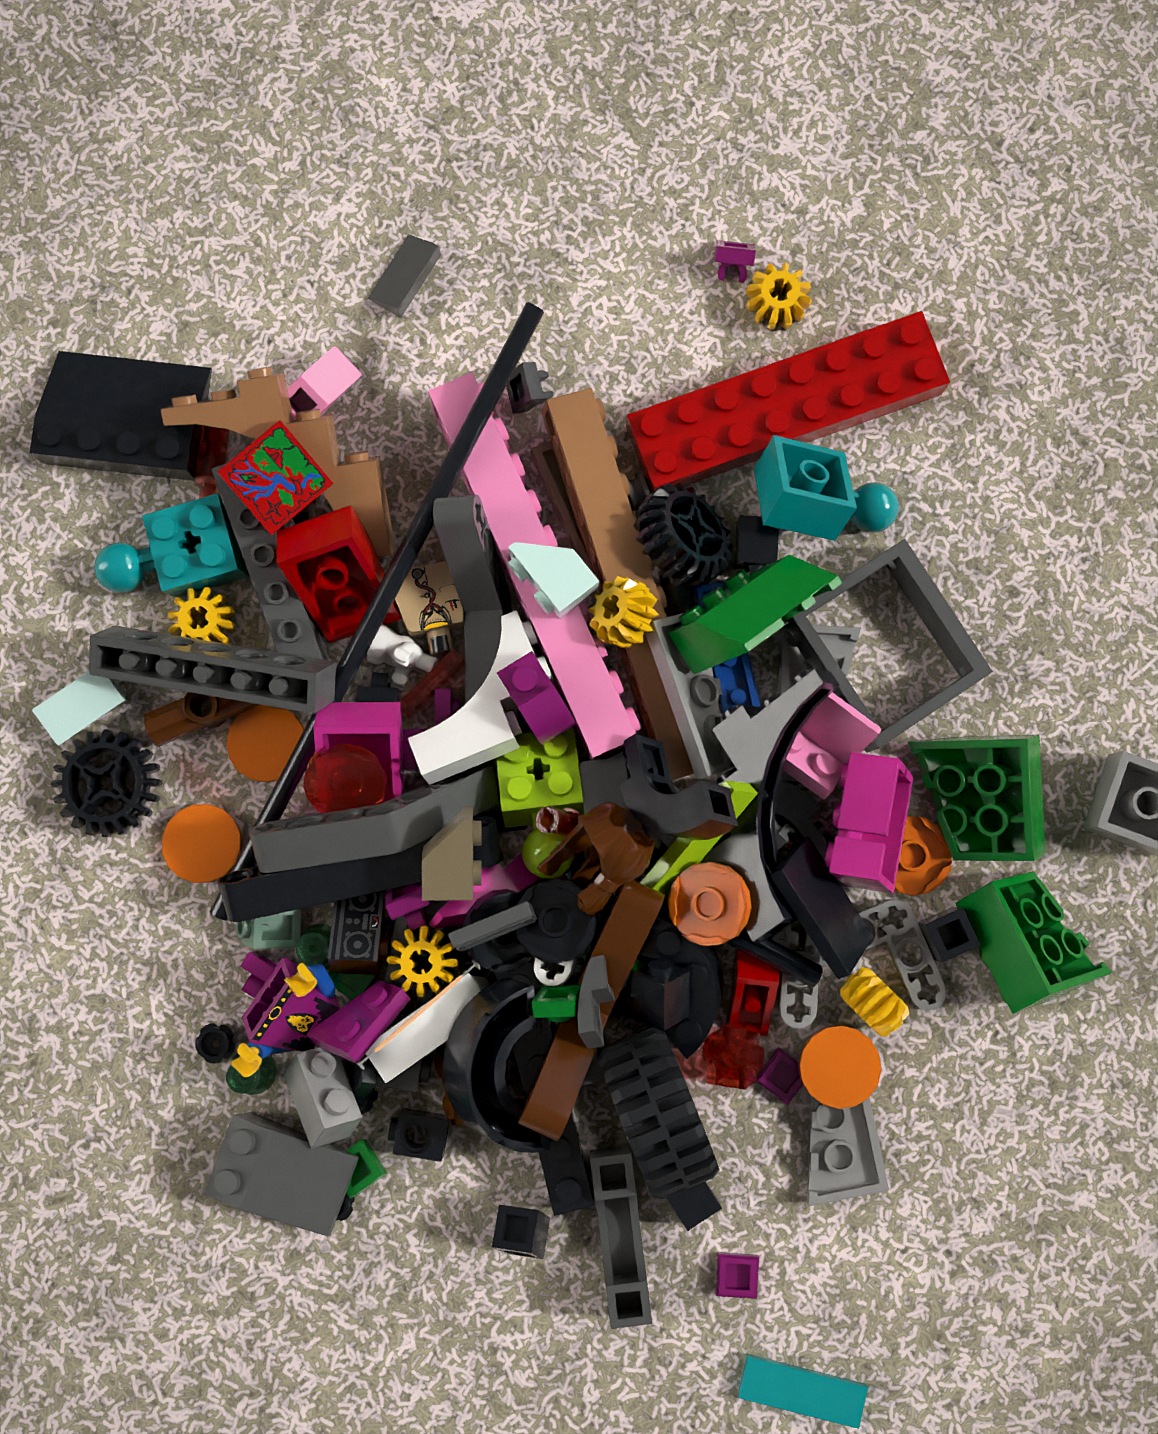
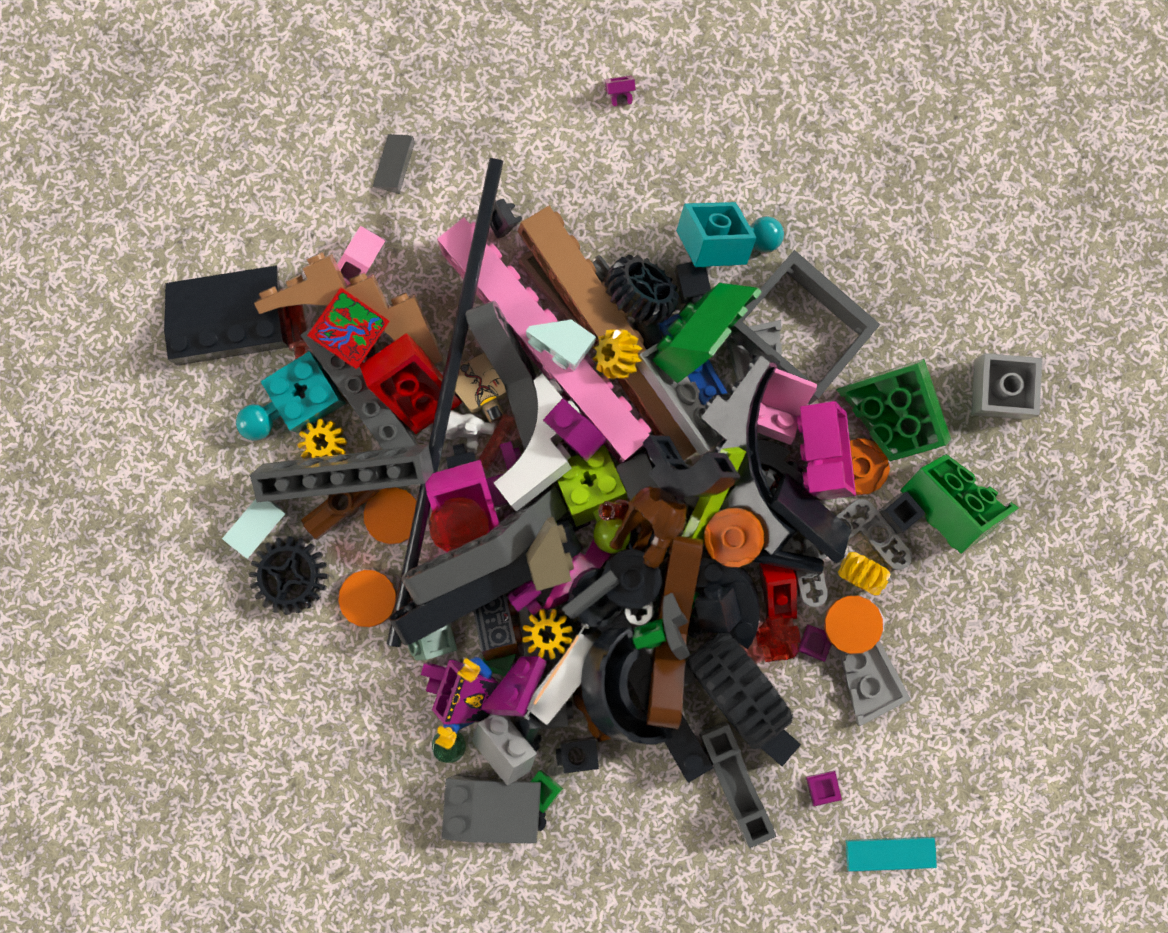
camera: 20 degrees left, 0 degrees up
(204, 1043) = (409, 735): black plate -> none
(314, 945) = (468, 645): clear green piece -> none
(521, 1231) = (668, 801): black brick -> none
(770, 307) = (658, 116): yellow gear -> none
(789, 399) = (688, 174): red brick -> none

